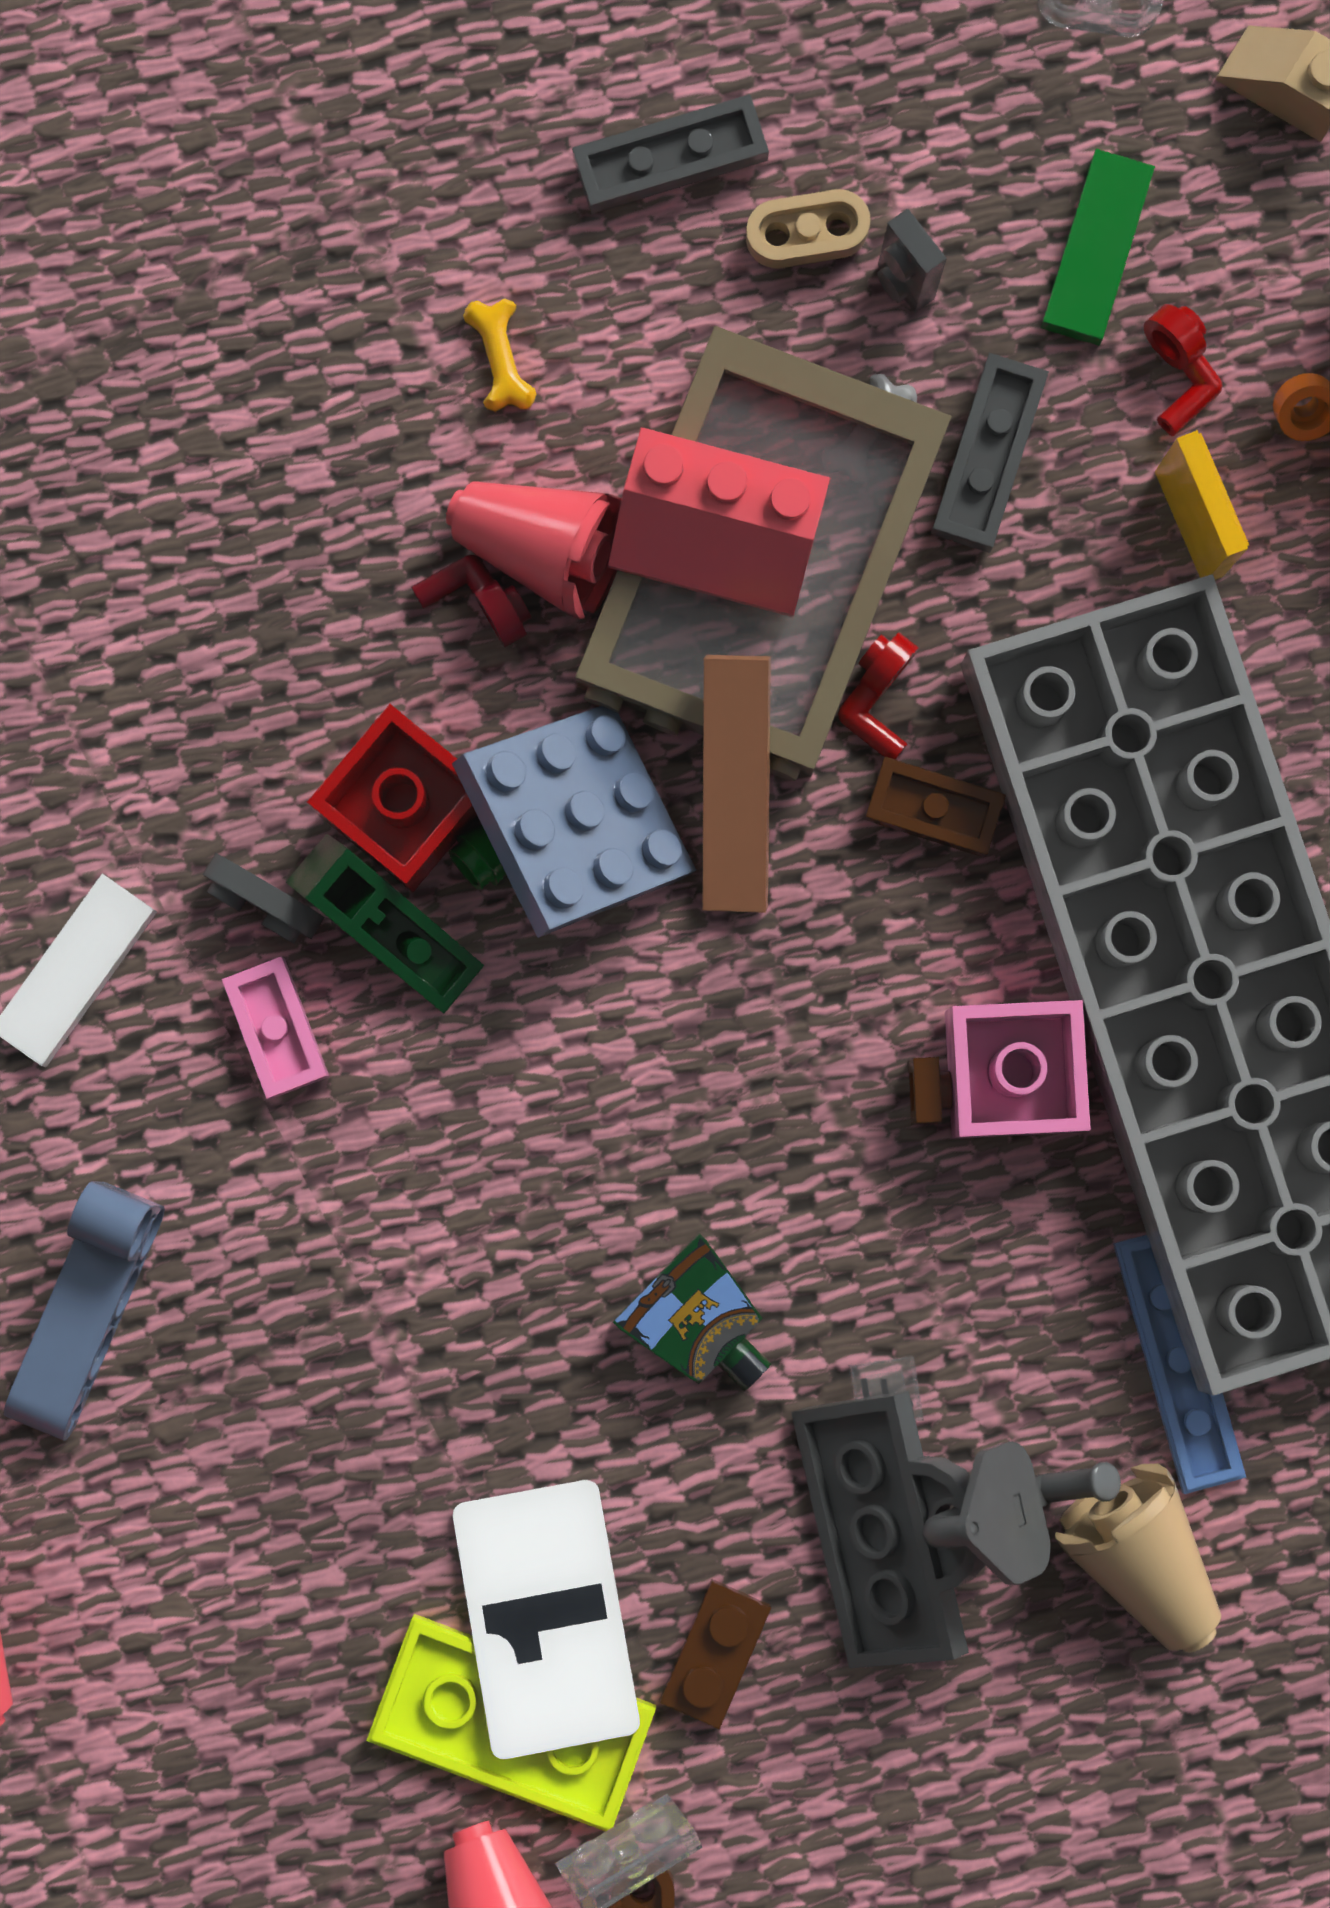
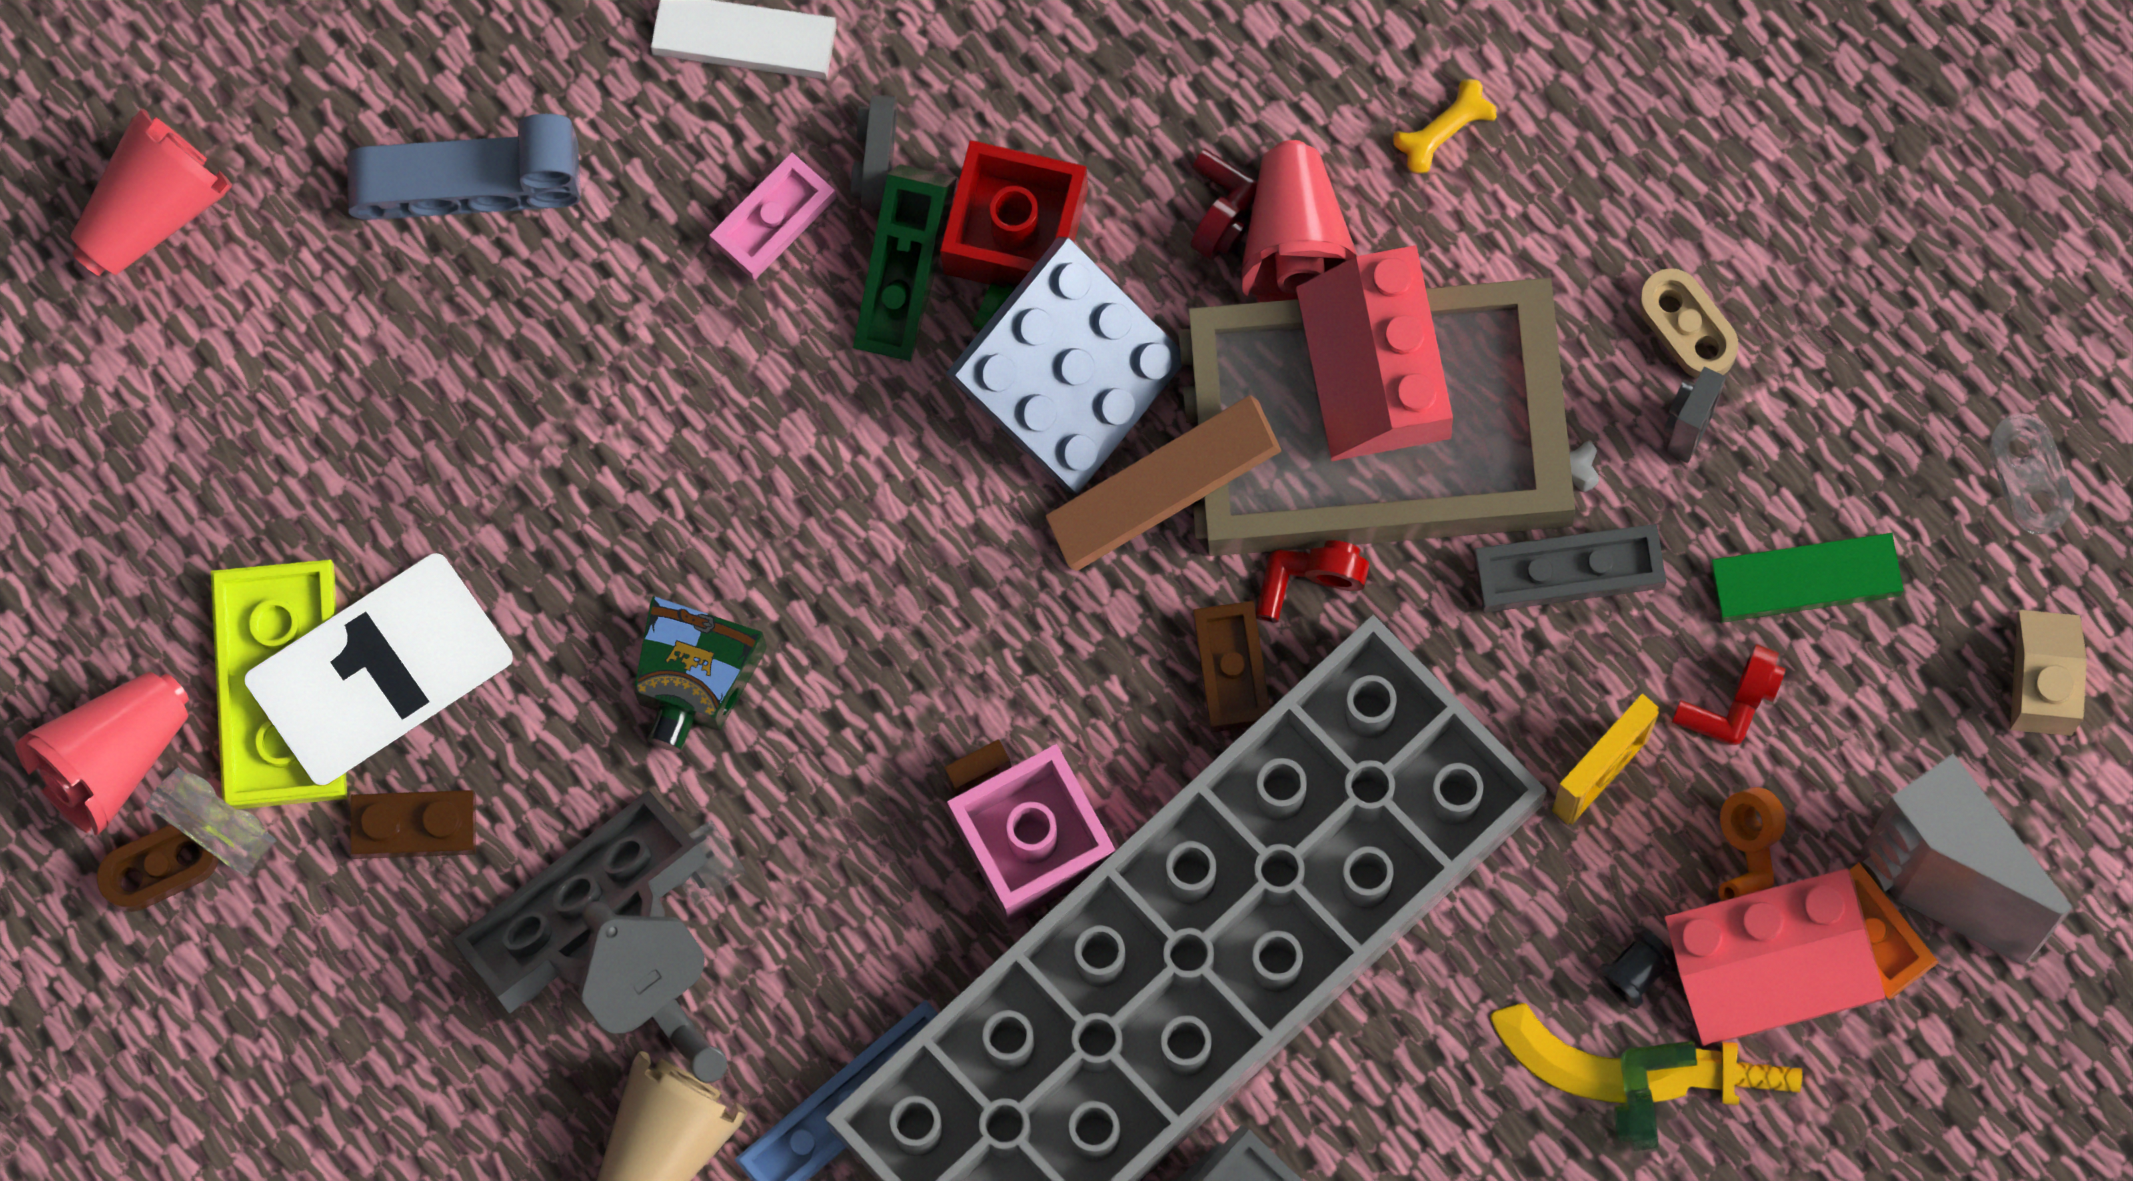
camera: 70 degrees right, 10 degrees down
(670, 154) = (1694, 180): dark grey plate -> none

